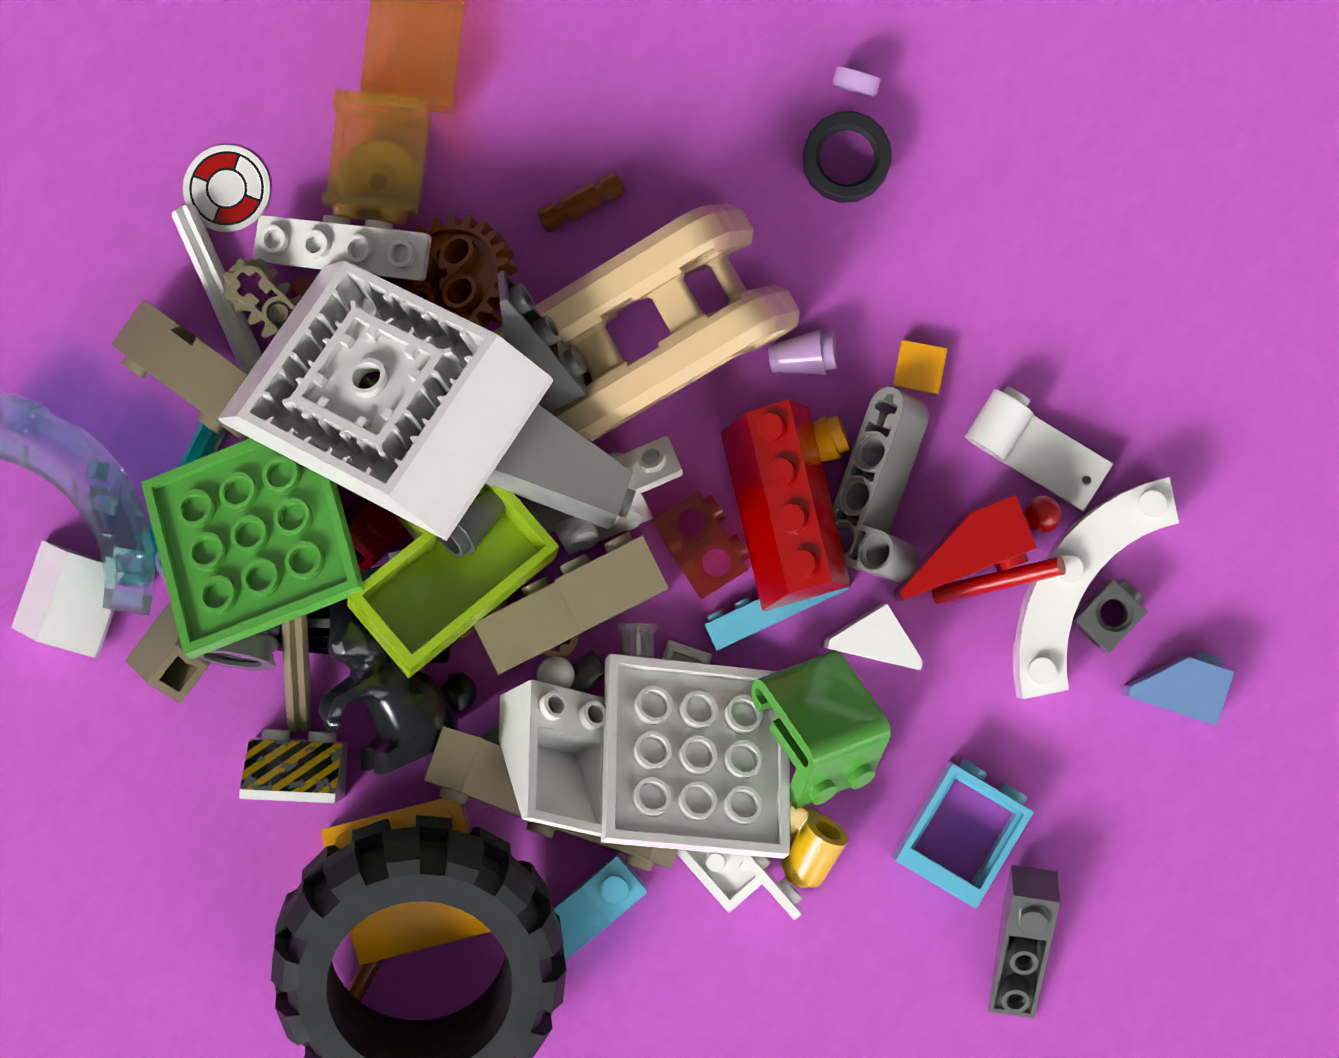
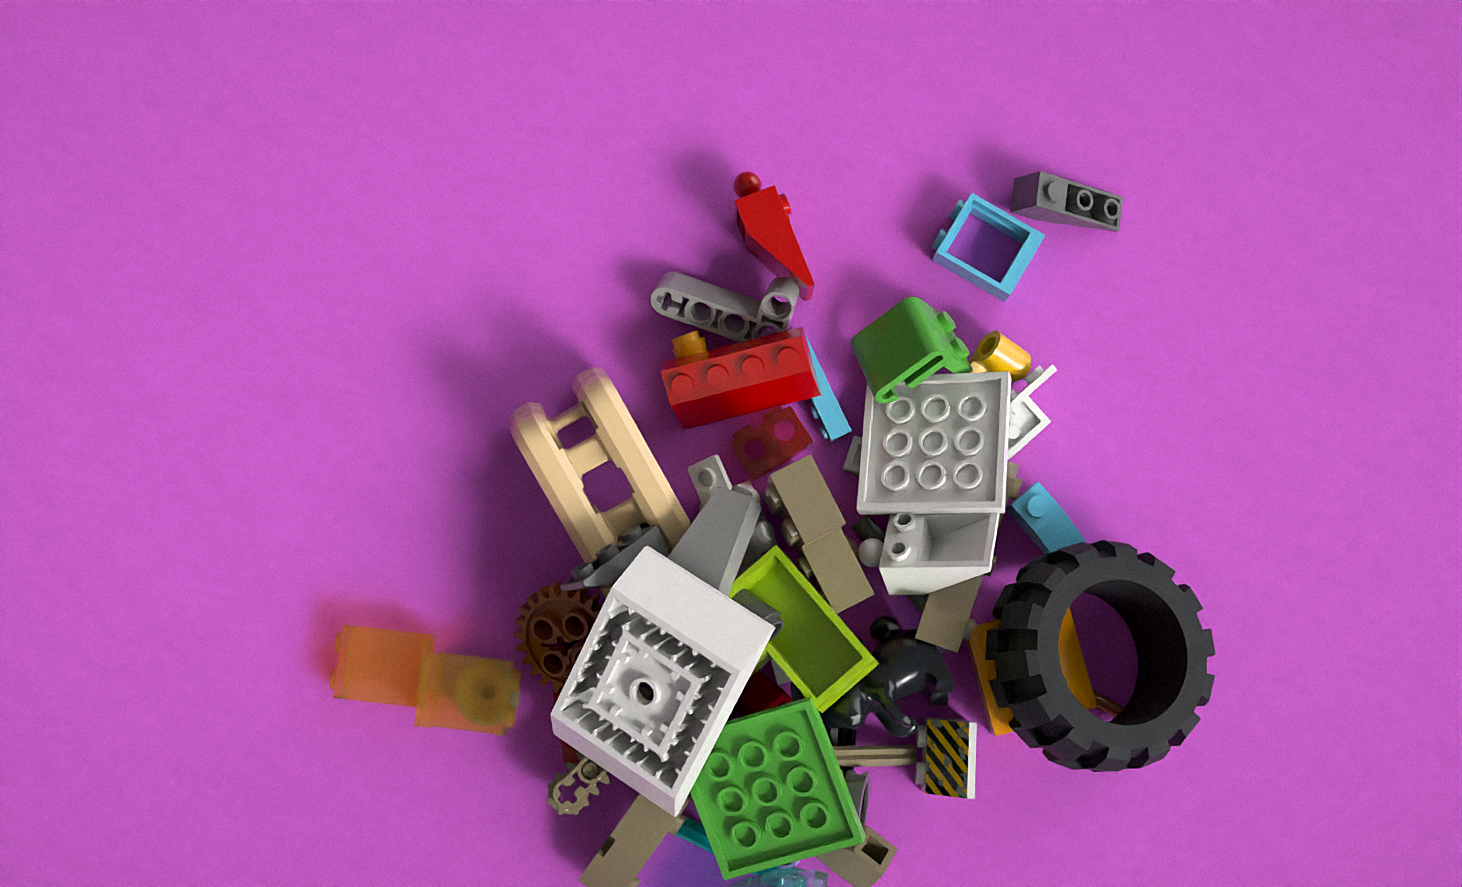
camera: 90 degrees left, 5 degrees down
(211, 275) = (567, 823): white axle -> none
(227, 187) = (490, 815): sticker -> none
(334, 240) = (534, 725): white bracket -> none
(581, 201) = (505, 536): dark orange axle -> none
(638, 639) = (844, 490): clear bush -> none
(805, 354) = (624, 364): lavender cone -> none
(840, 122) = (462, 309): black tyre -> none
(856, 81) = (416, 325): lavender tile -> none
(876, 637) = (840, 308): white slope -> none
(919, 367) = (635, 280): light orange tile -> none
(999, 580) = (797, 216): red bar -> none
(1036, 449) = (697, 193): white door -> none
(1085, 548) = (793, 170): white brick -> none
(1089, 620) = (825, 153): dark grey brick -> none
(1186, 686) = (875, 84): medium blue slope -> none

